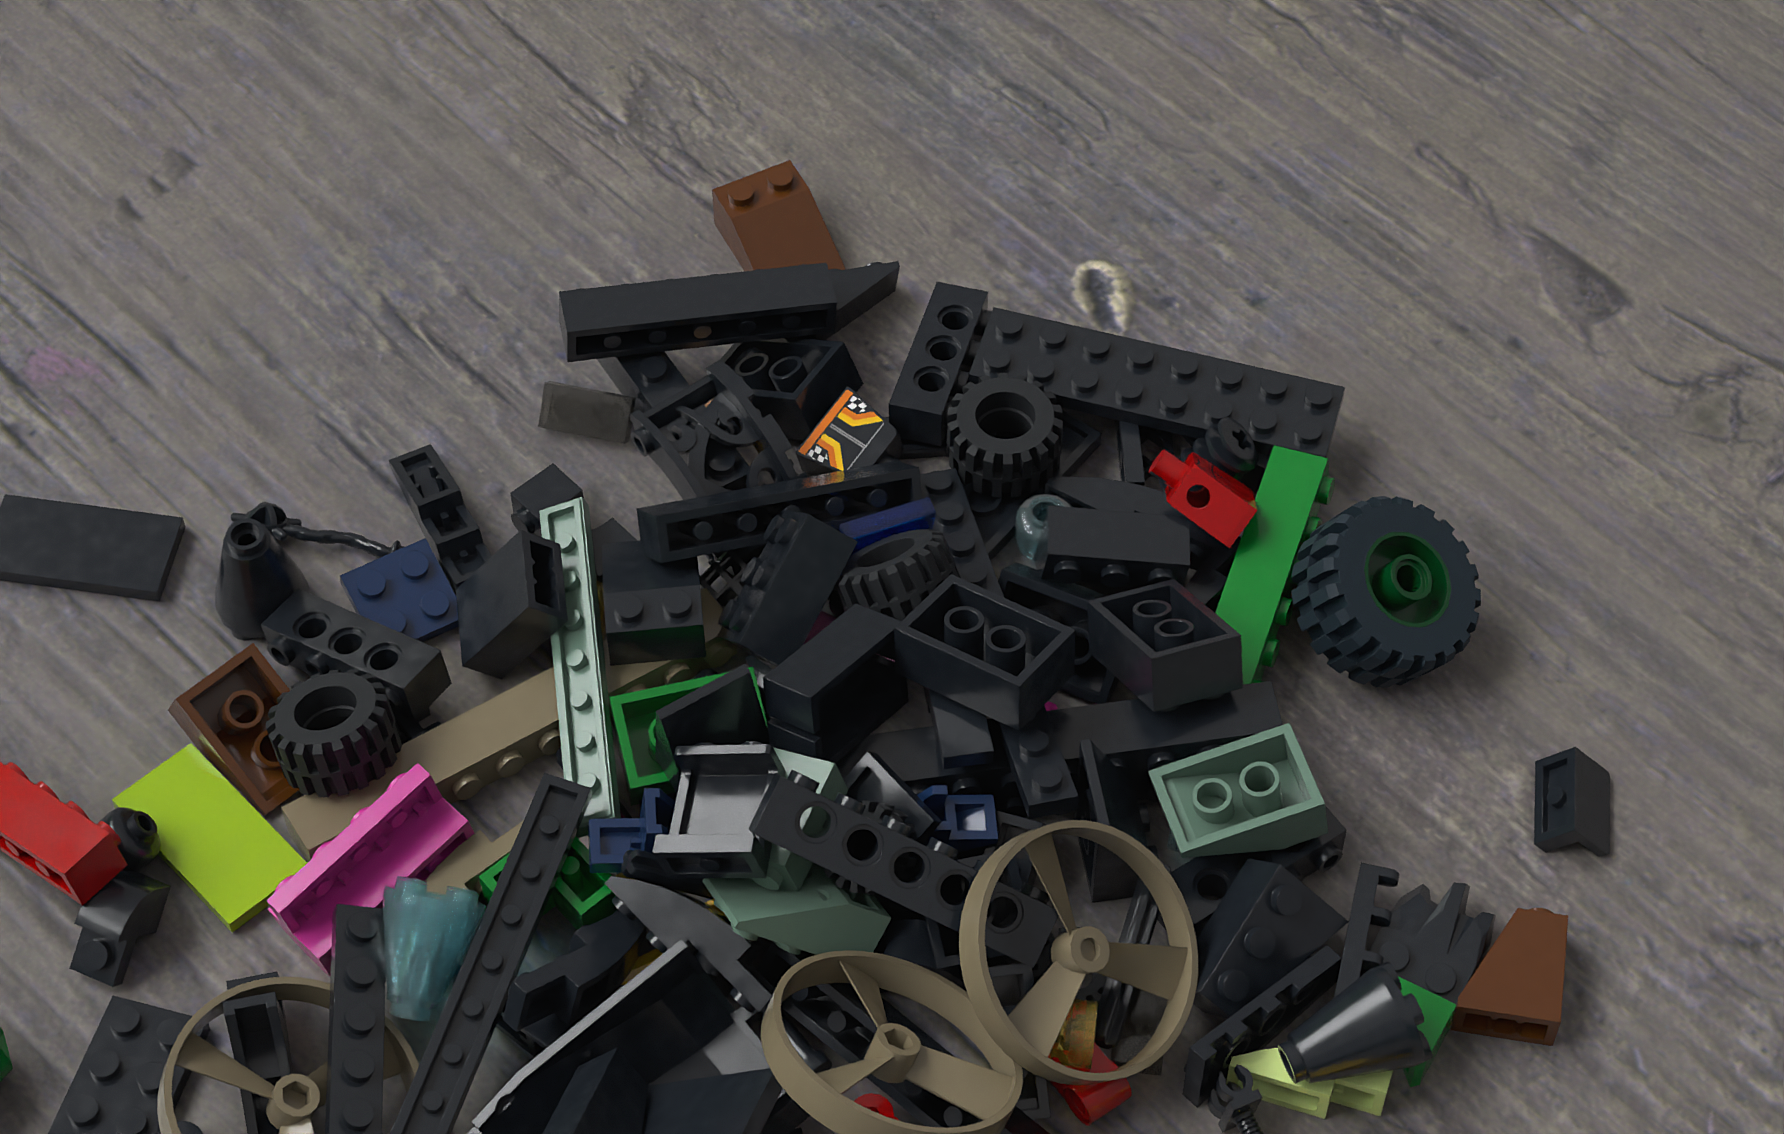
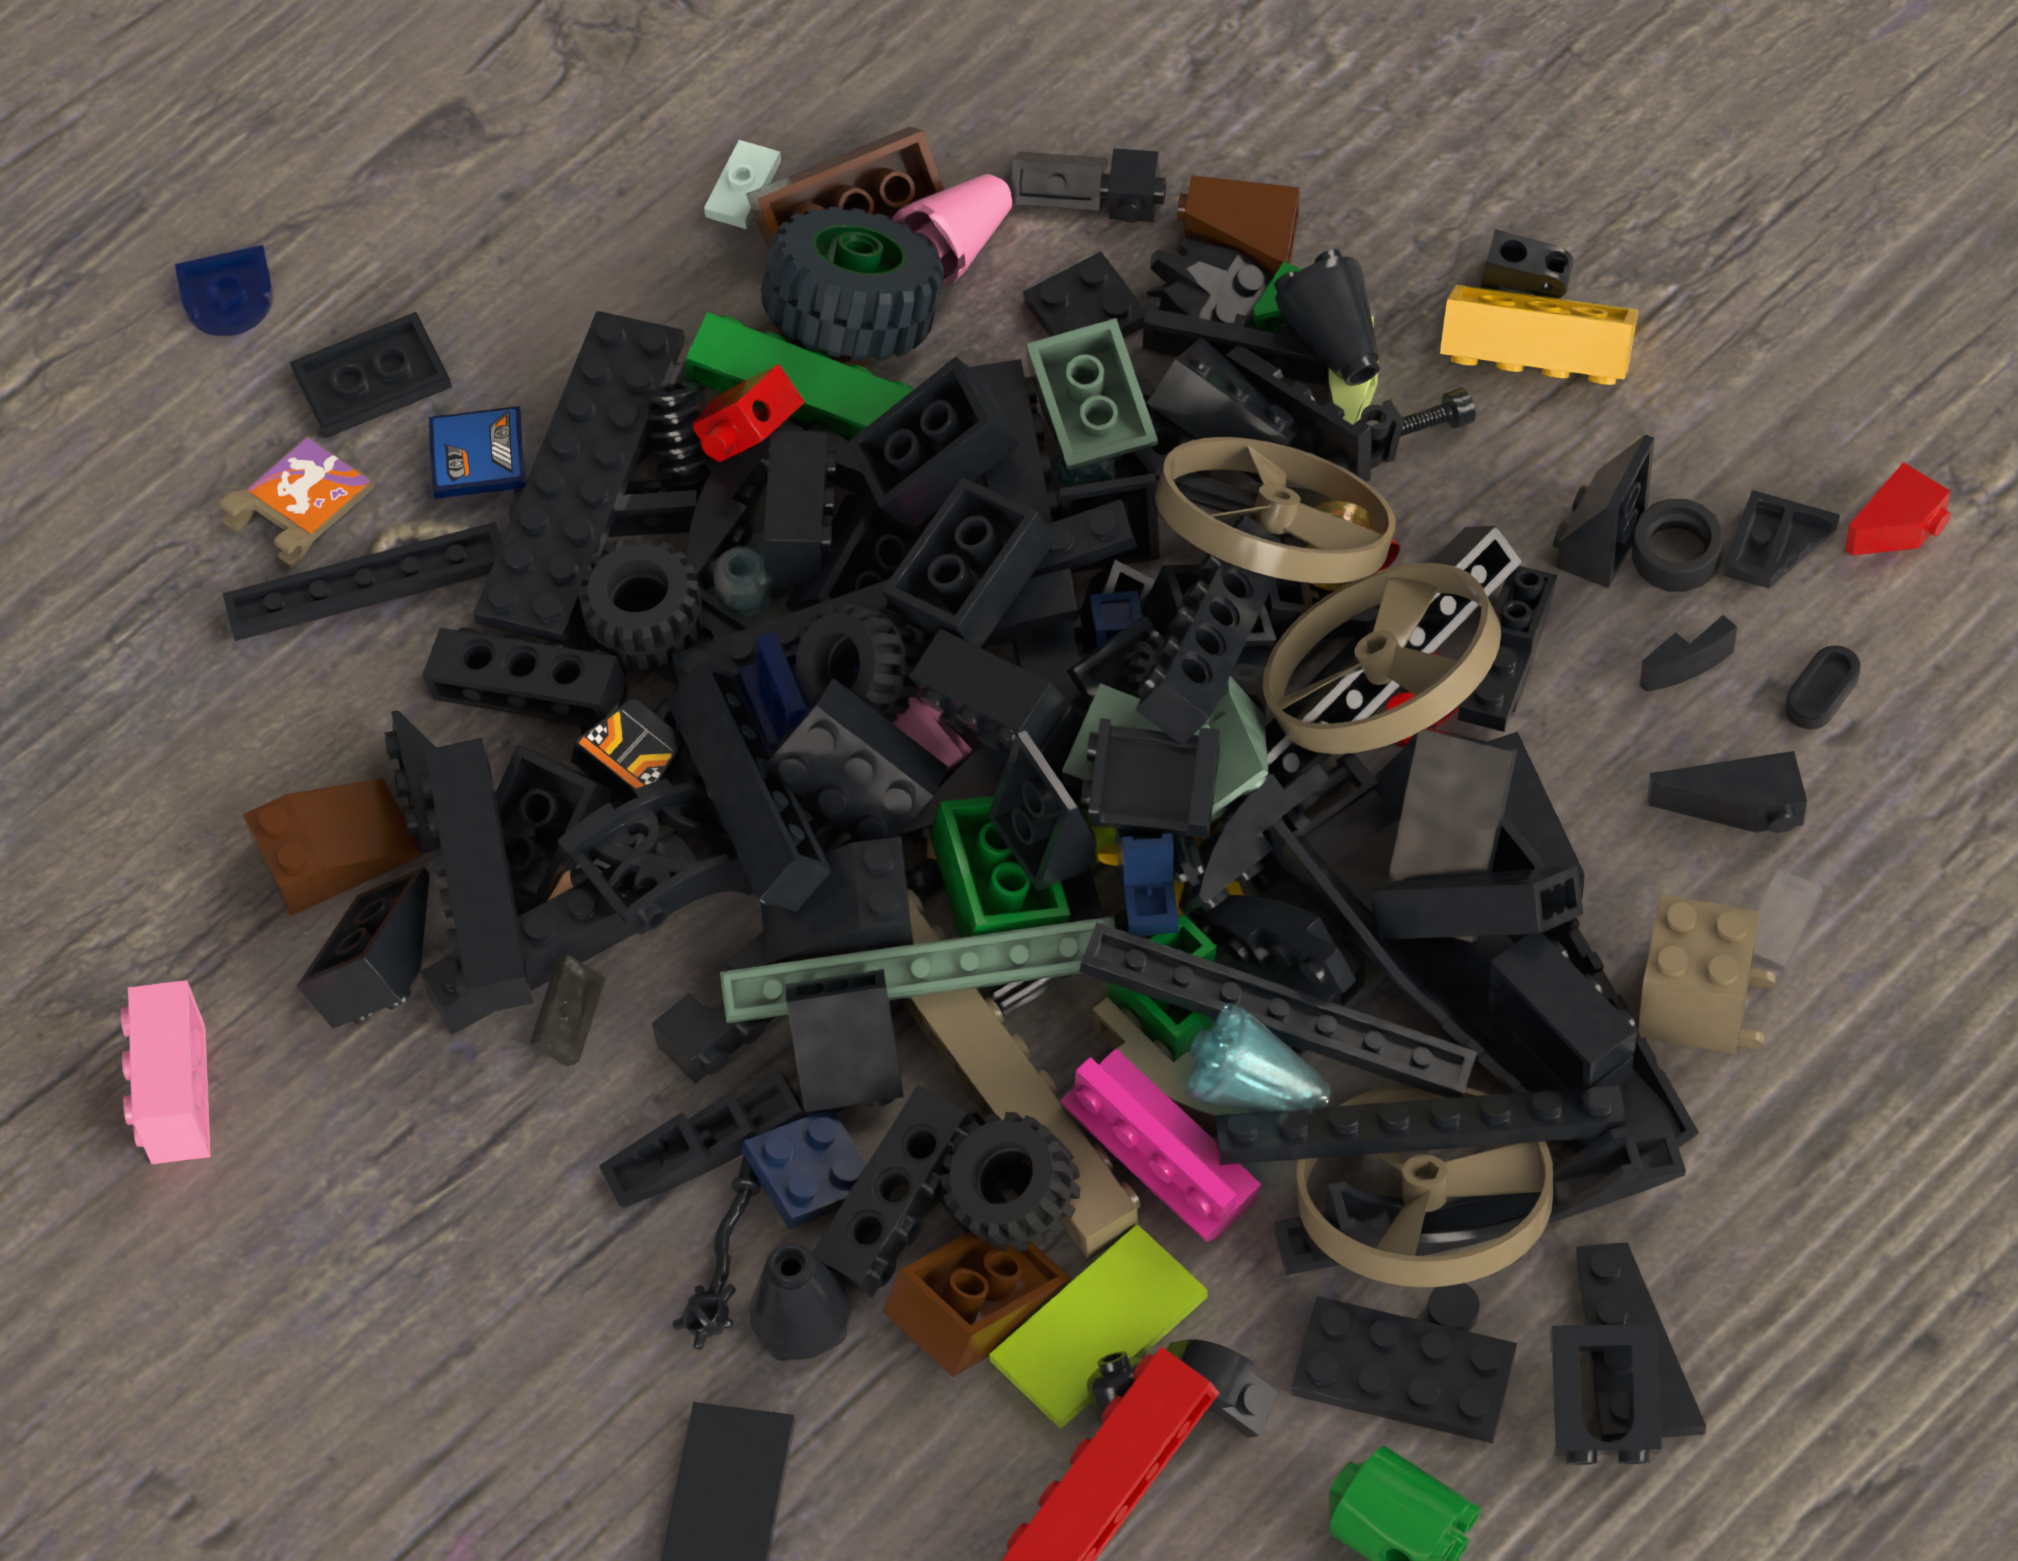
camera: 85 degrees left, 5 degrees up
(540, 130) = (166, 1072): none -> bright pink brick
(637, 252) = (371, 952): none -> black slope
(1053, 240) = (362, 581): none -> black plate
(1152, 201) = (301, 495): none -> flag
(1204, 321) = (477, 452): none -> slope
(1293, 247) = (370, 374): none -> black tile
(1384, 139) = (226, 291): none -> clear blue tile
(1406, 831) = (1083, 297): none -> black plate
(1493, 702) = (959, 220): none -> bright pink cone
(1528, 620) = (871, 178): none -> reddish brown slope
(1542, 528) = (745, 171): none -> light aqua plate
(1562, 871) = (1133, 185): none -> black brick

